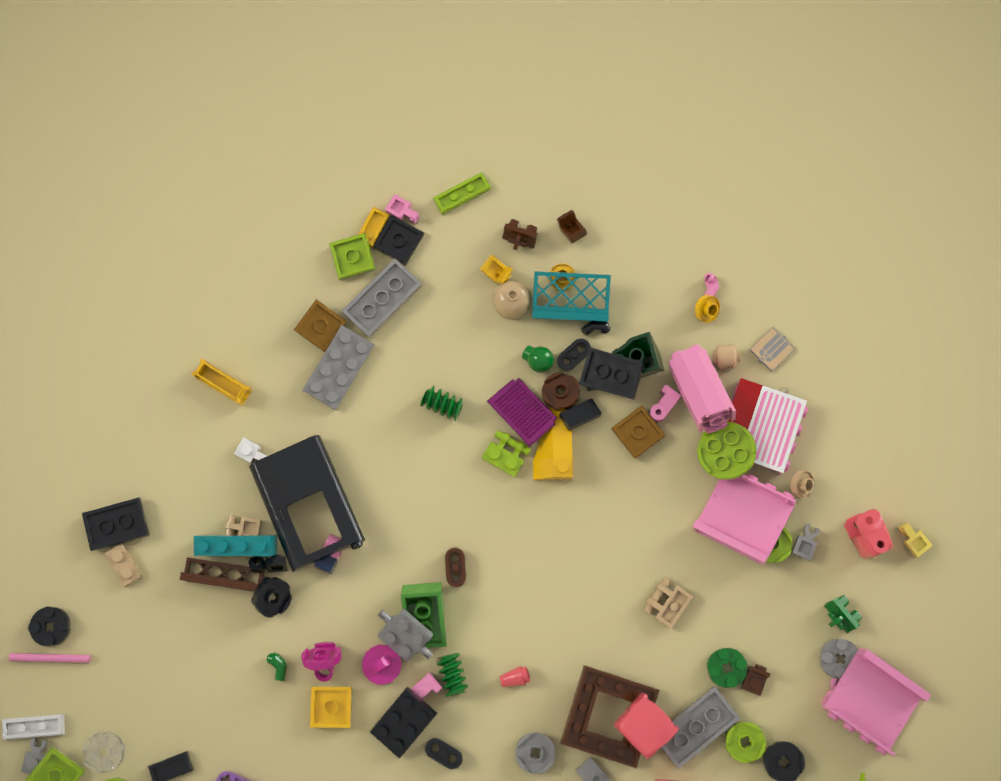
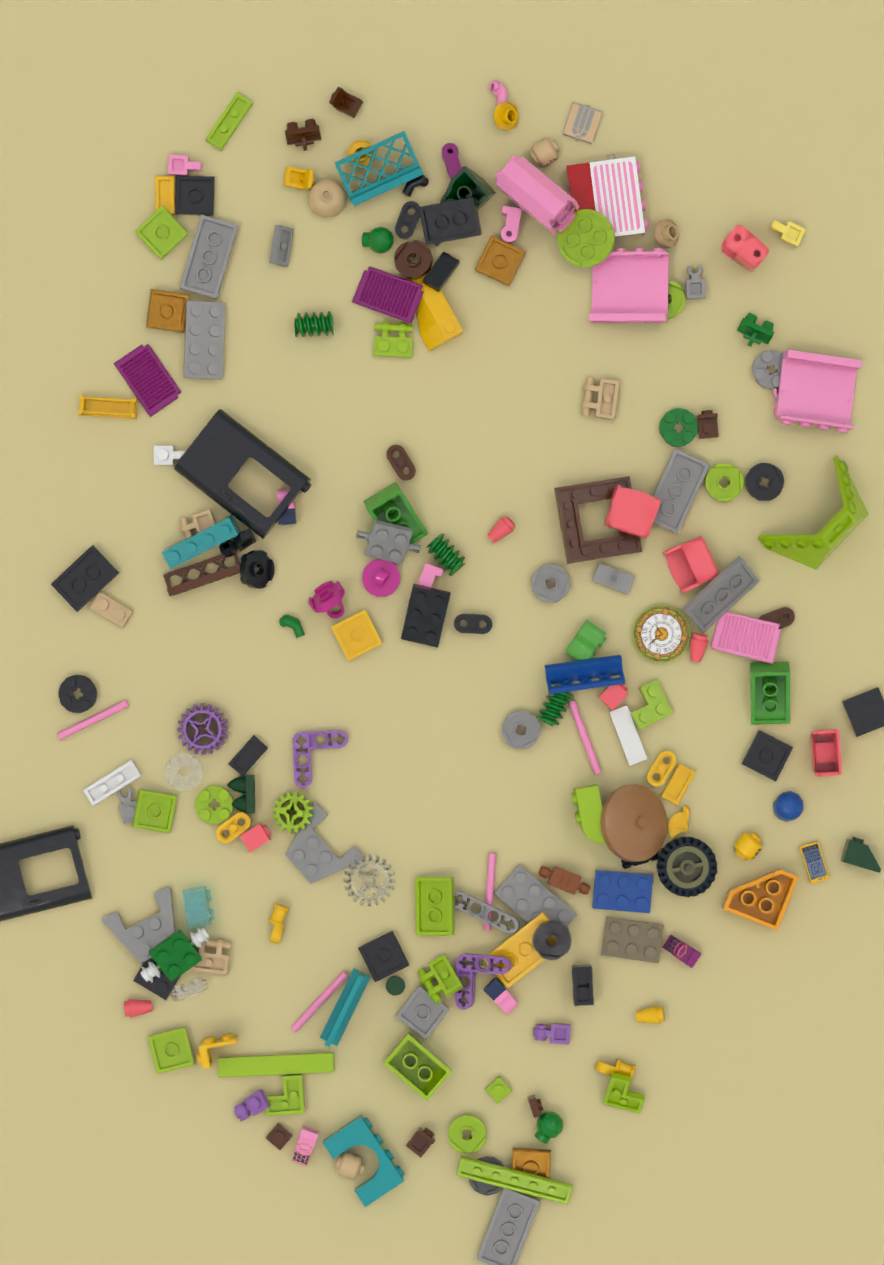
camera: 25 degrees left, 10 degrees up
(138, 715) = (189, 720): none -> medium lavender gear
(271, 376) = (148, 379): none -> magenta window
(450, 320) = (281, 245): none -> light grey plate
(639, 321) = (451, 160): none -> magenta leg

